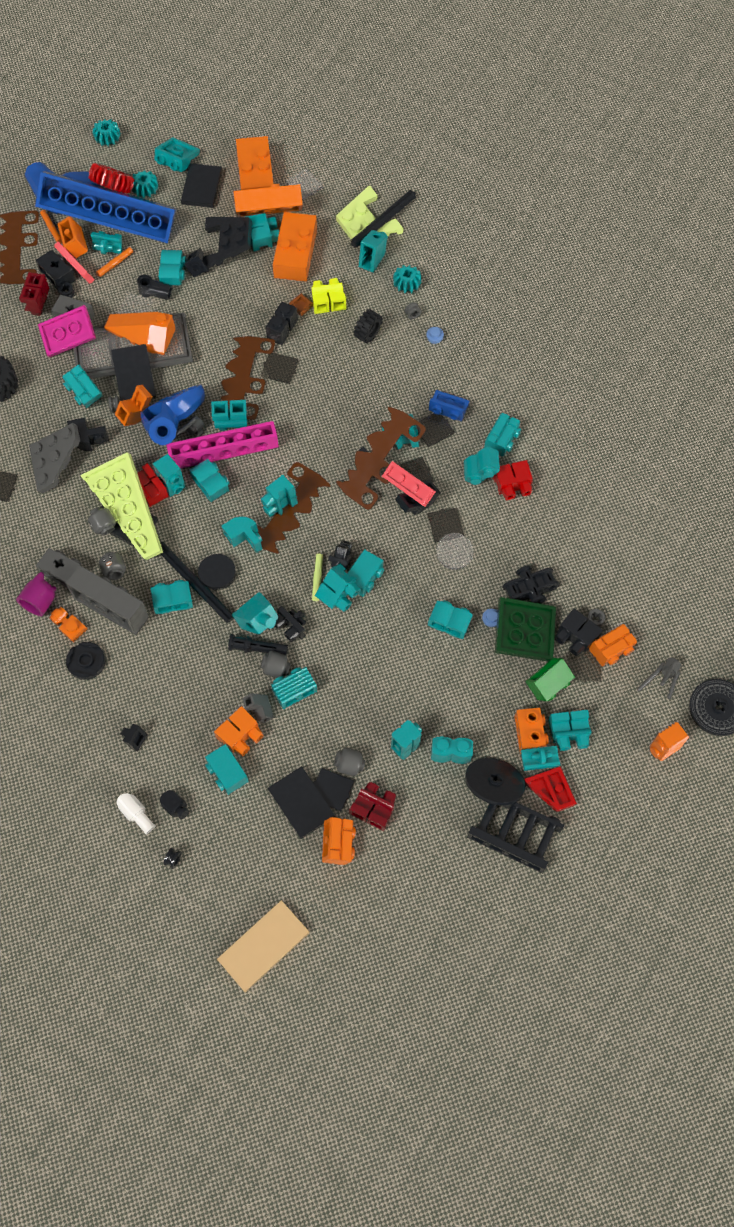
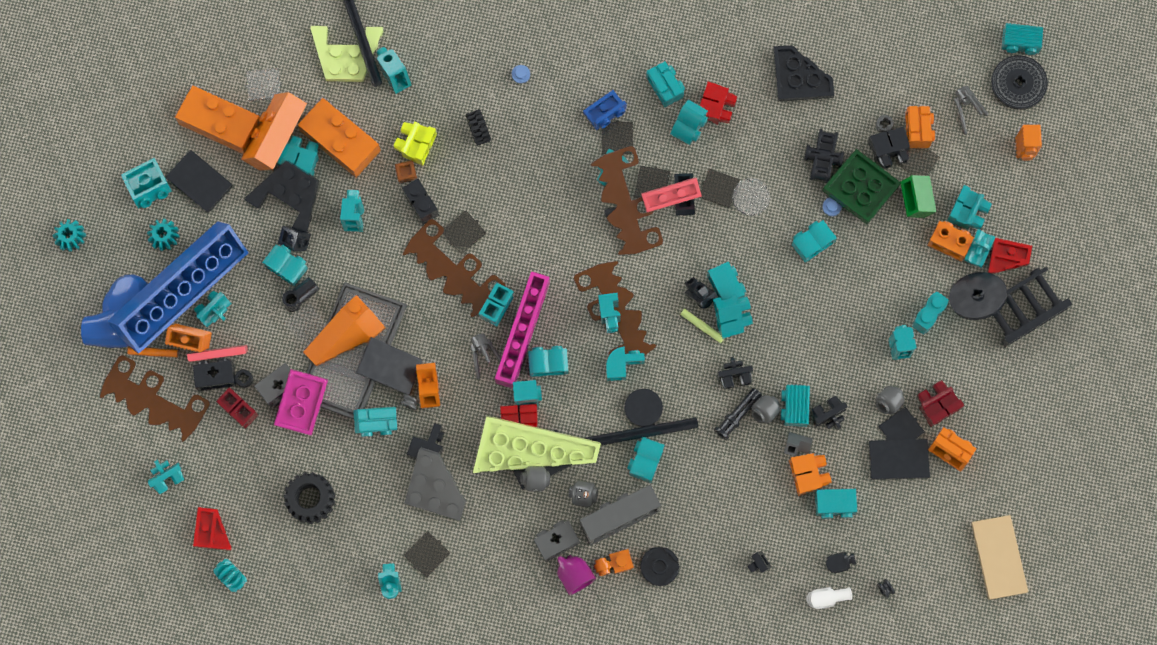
camera: 55 degrees left, 10 degrees up
(111, 178) = (149, 262): red gear -> none
(114, 262) = (238, 314): orange piece -> none
(164, 416) = (455, 355): blue piece -> none
(240, 282) = (351, 212): none -> teal hips
(256, 615) = (713, 397): teal torso -> none
(300, 719) = (836, 407): none -> black hips
(407, 279) = (439, 55): teal gear -> none
(412, 310) = (483, 77): dark grey bush -> none
(585, 529) = (799, 76): none -> black plate

